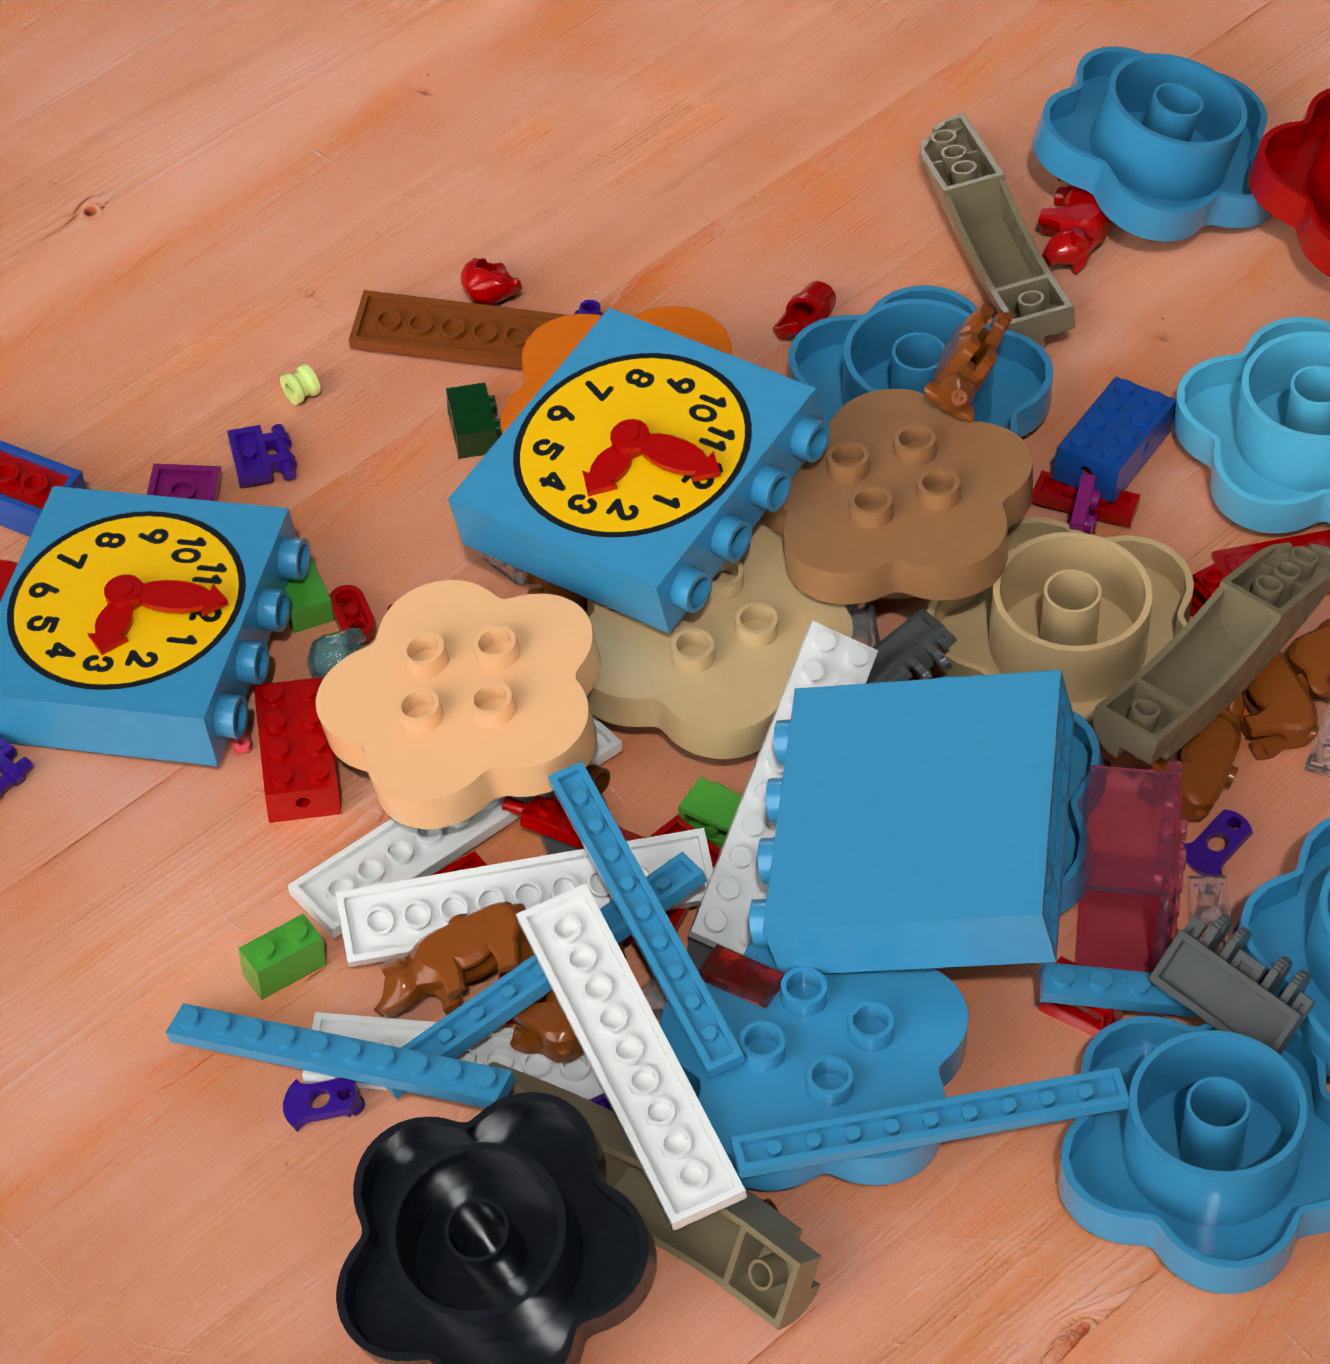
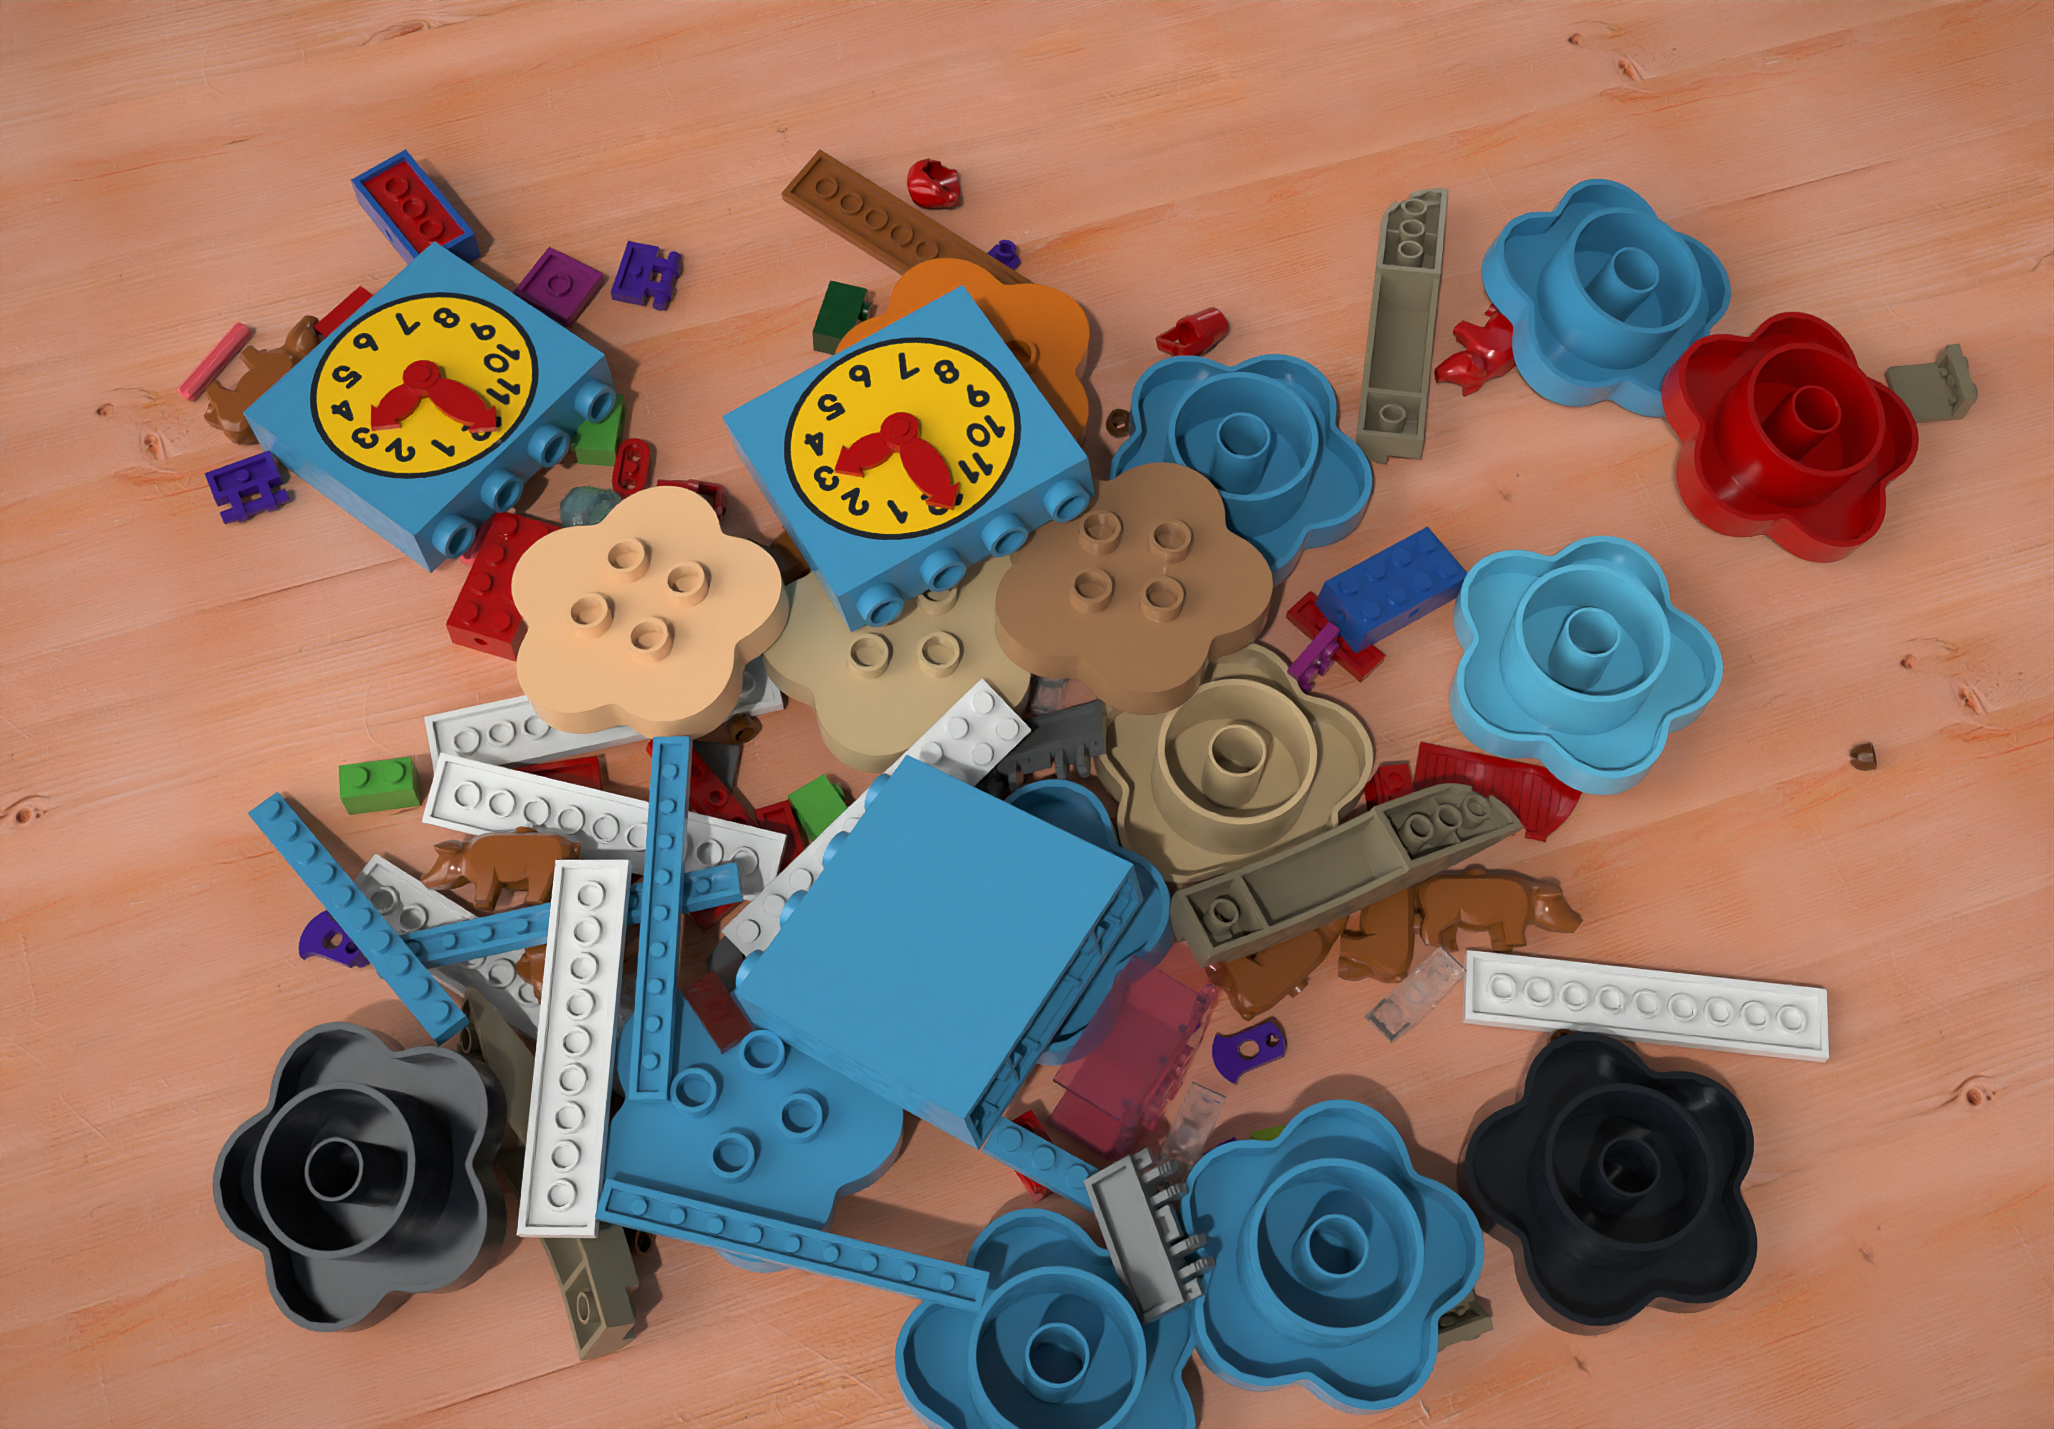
camera: 20 degrees right, 15 degrees up
(300, 384) = (716, 220): yellowish green wheel -> none
(967, 362) = (1264, 476): dark orange animal -> none

